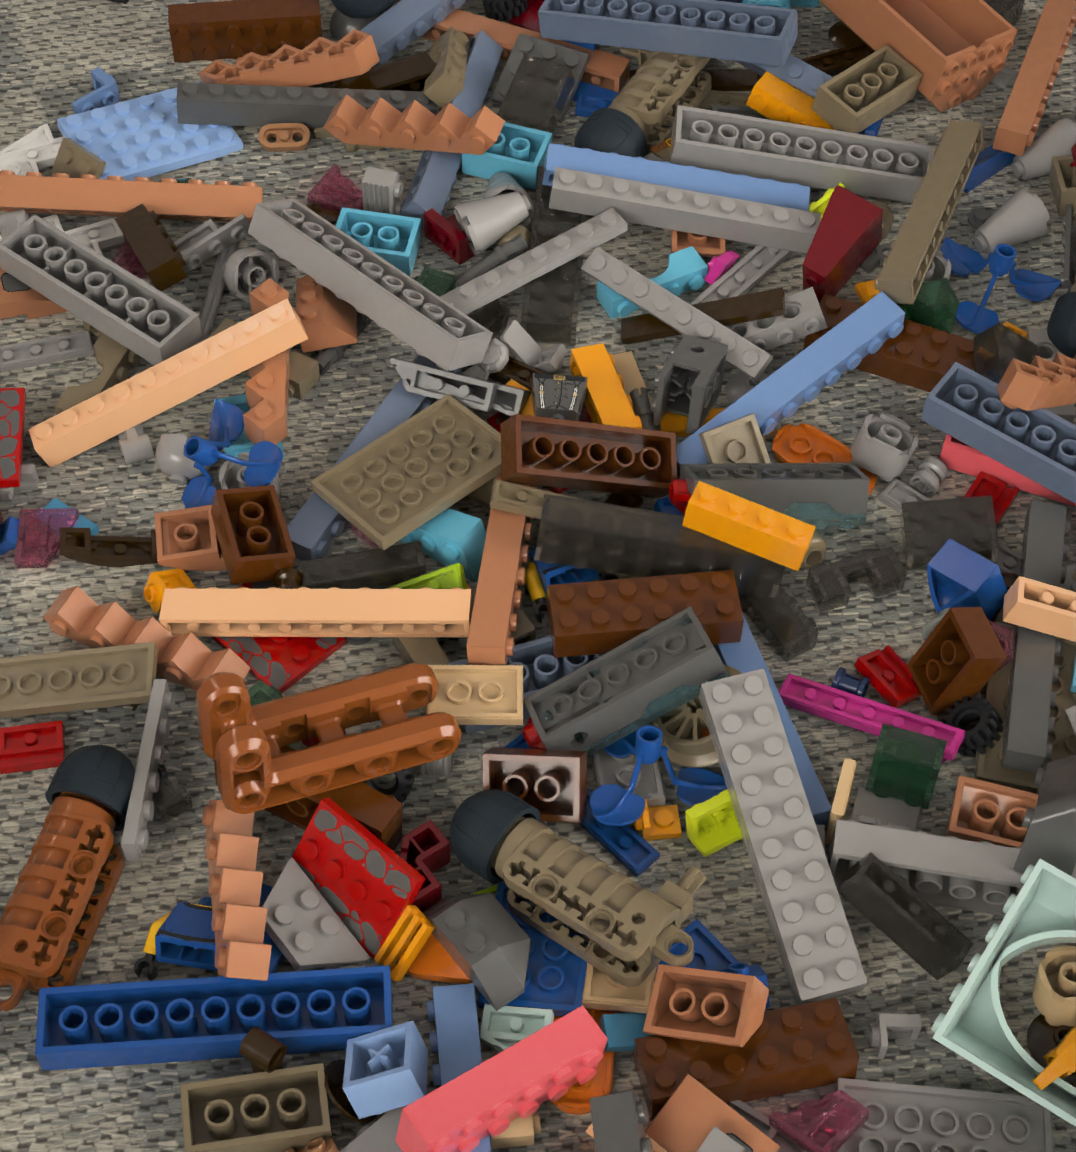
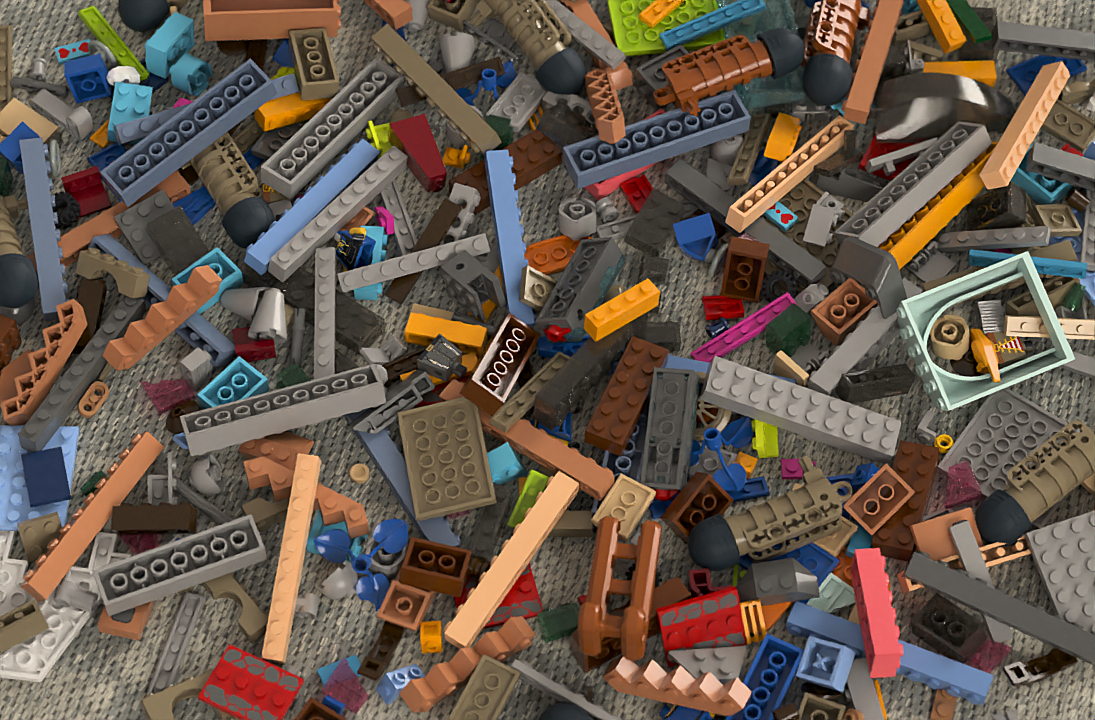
camera: 60 degrees left, 5 degrees up
(79, 575) = (396, 680): none -> medium blue bracket
(149, 138) = (46, 477): none -> dark blue tile
(355, 413) = (359, 473): none -> tan tile
(653, 250) = (354, 248): none -> torso
(706, 894) = (791, 469): none -> dark pink plate
(890, 1062) = (943, 439): none -> yellow plate
(981, 765) = (811, 296): none -> light grey bracket
(983, 237) = (455, 79): none -> dark brown tile
(986, 306) = (519, 101): none -> light grey plate

